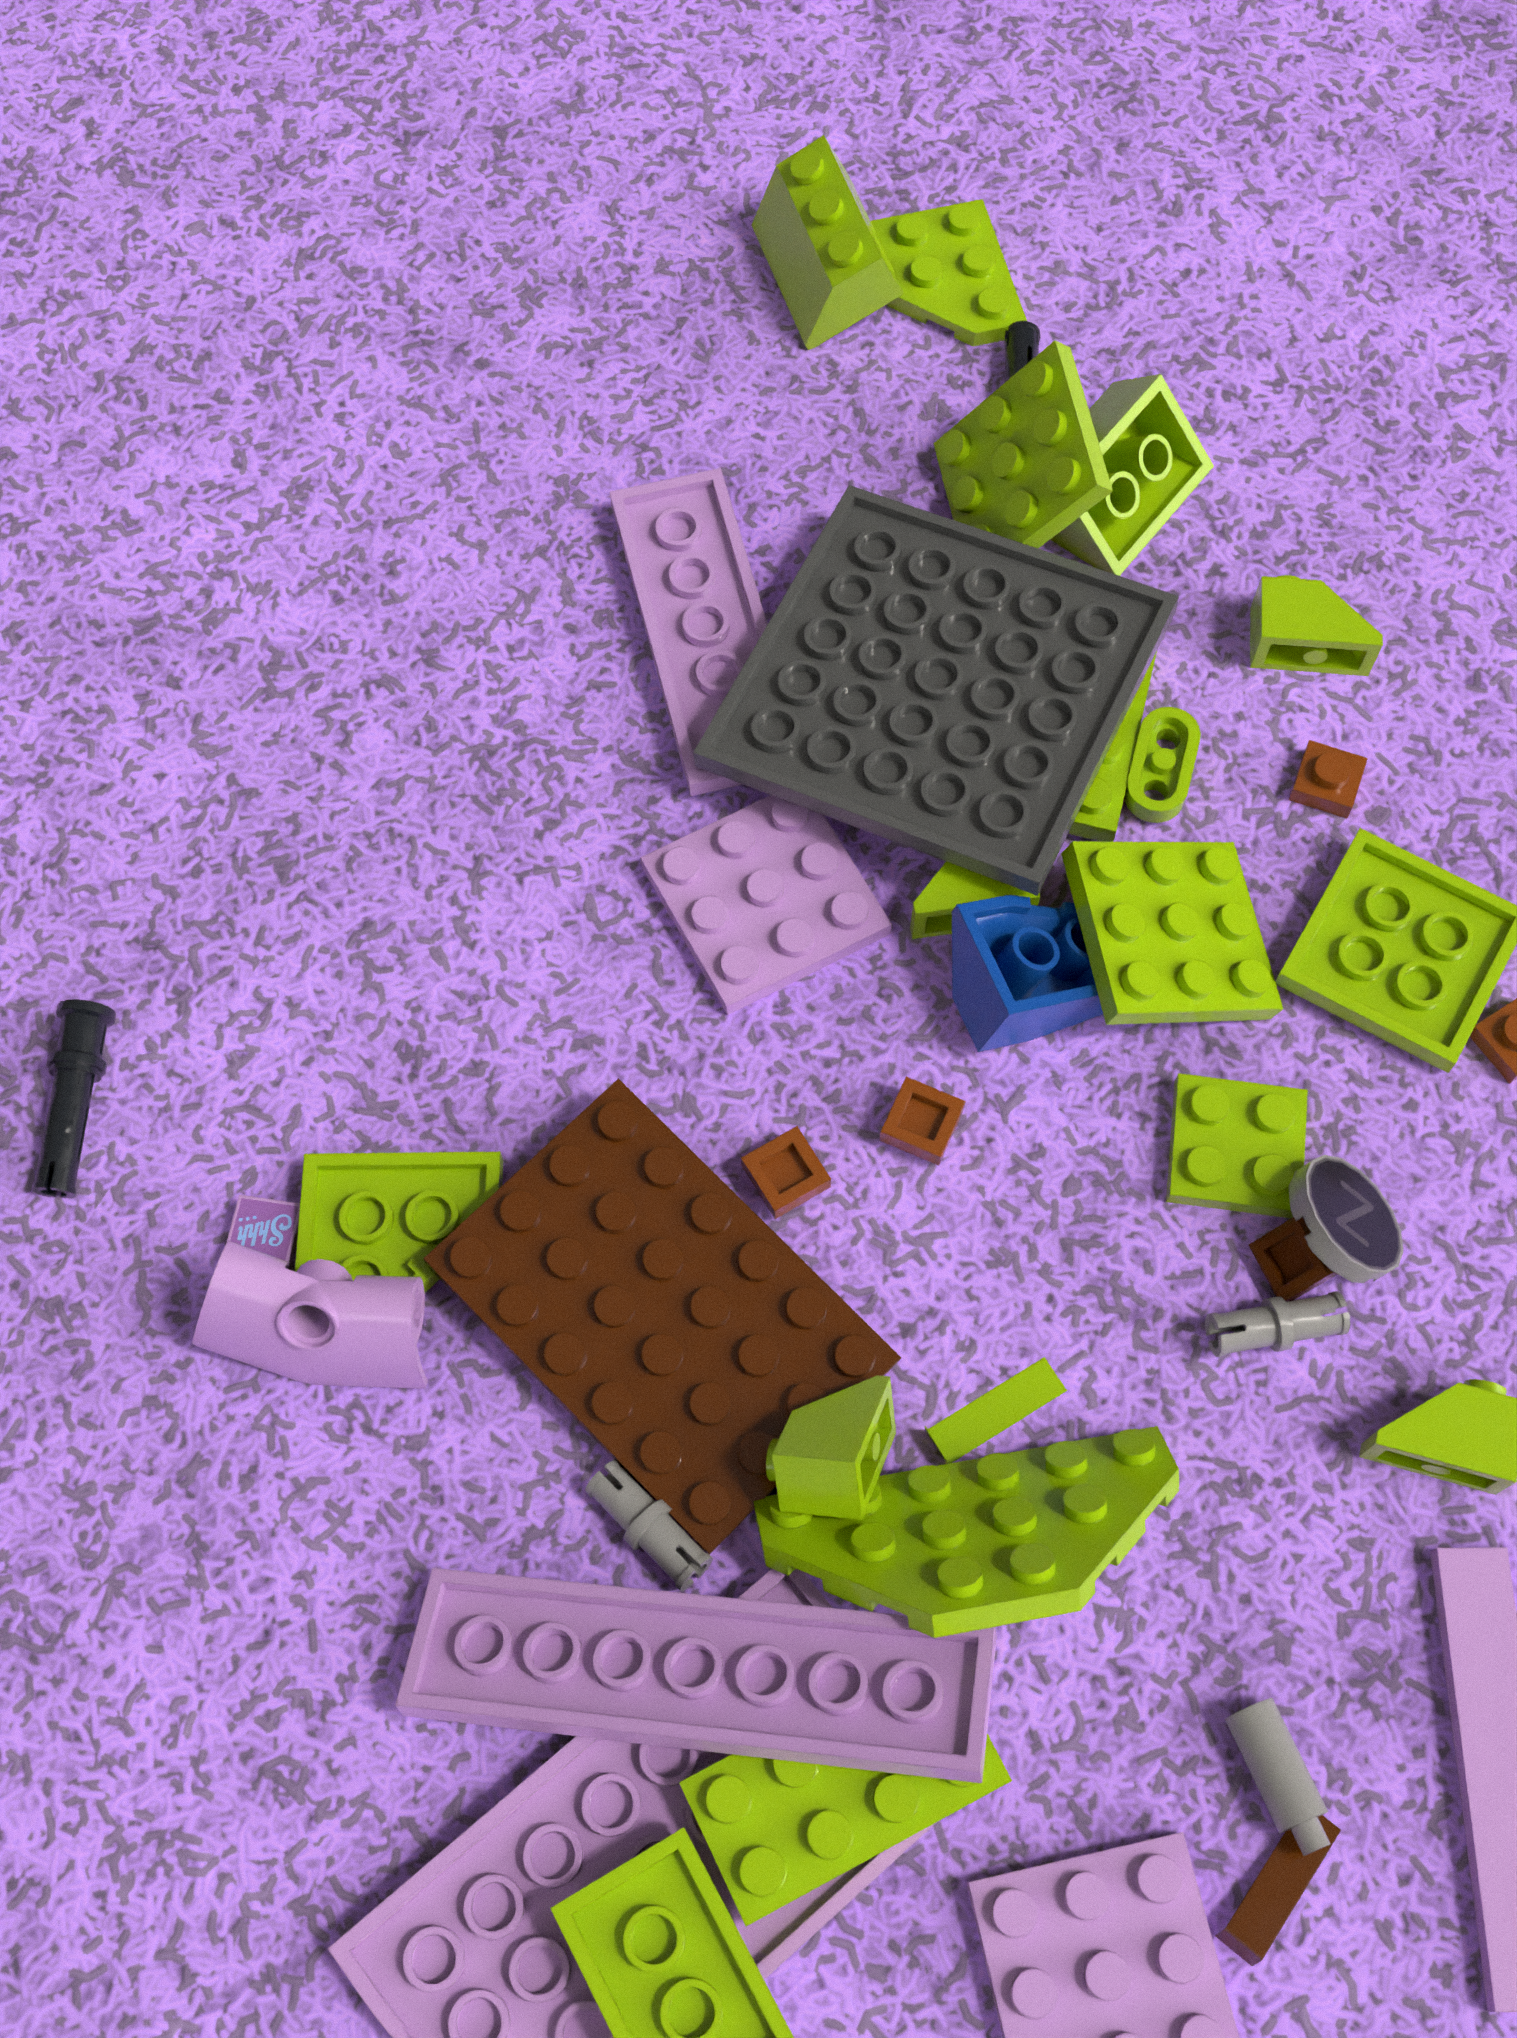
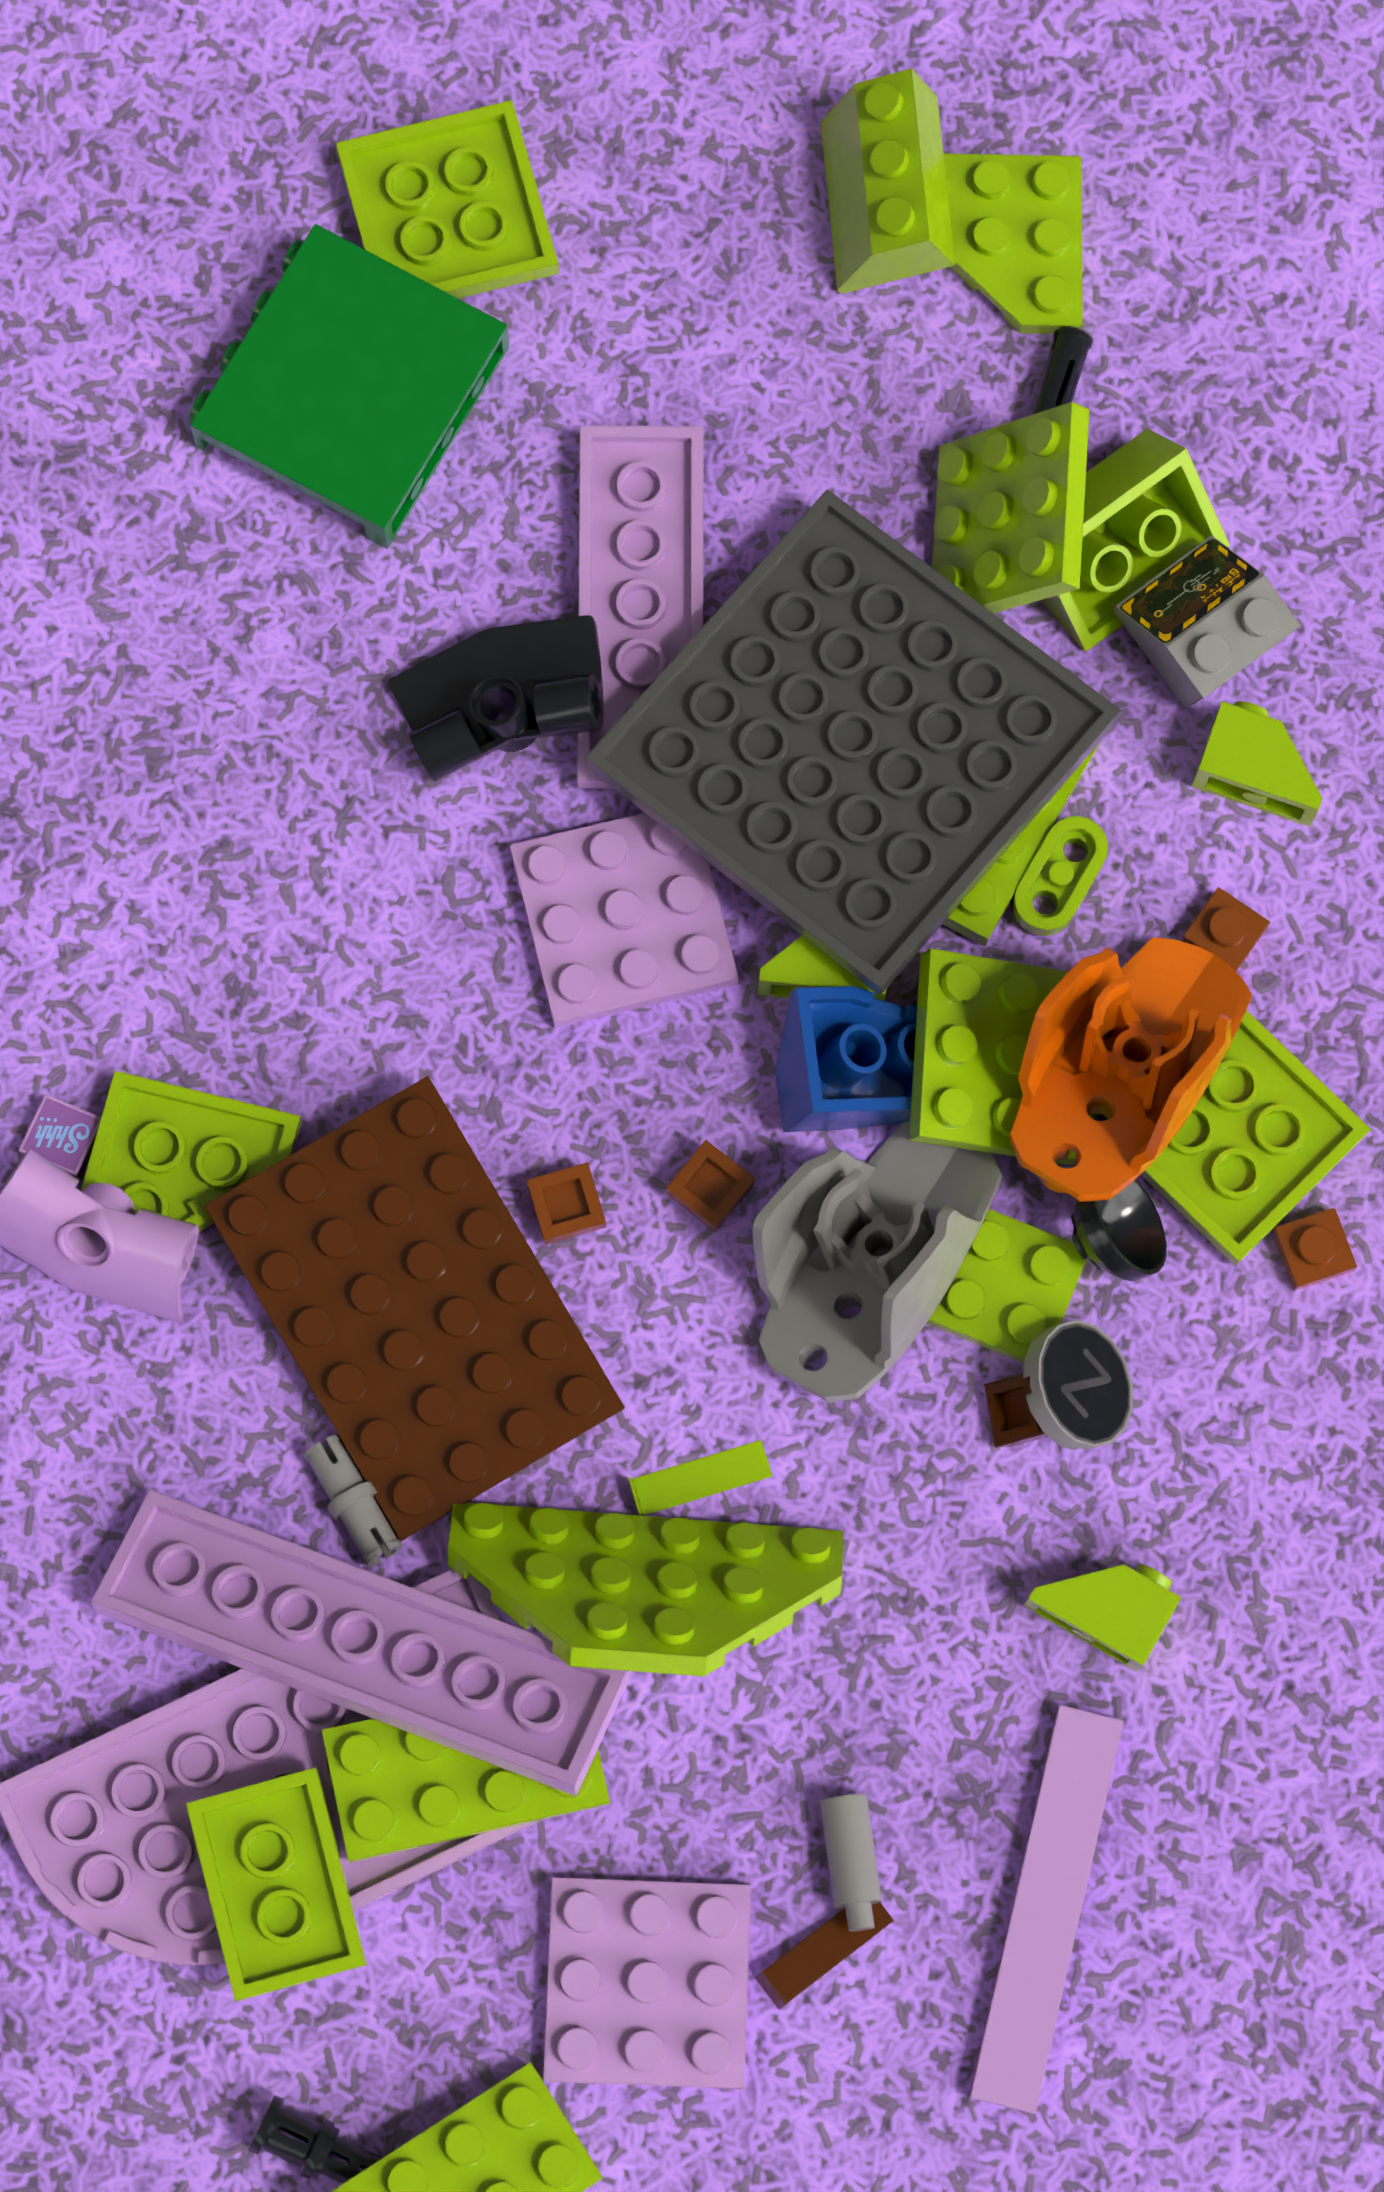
camera: 10 degrees right, 10 degrees up
(392, 502) = (350, 381): none -> green panel
(444, 354) = (451, 201): none -> lime plate
(598, 725) = (537, 667): none -> black panel
(834, 1451) = (537, 1479): lime slope -> none
(1093, 1131) = (868, 1239): none -> light grey piece
(1220, 520) = (1205, 619): none -> light grey slope
(1277, 1324) = (984, 1466): light grey pin -> none
(1291, 906) = (1125, 1047): none -> orange piece
(1327, 1060) = (1121, 1234): none -> black piece

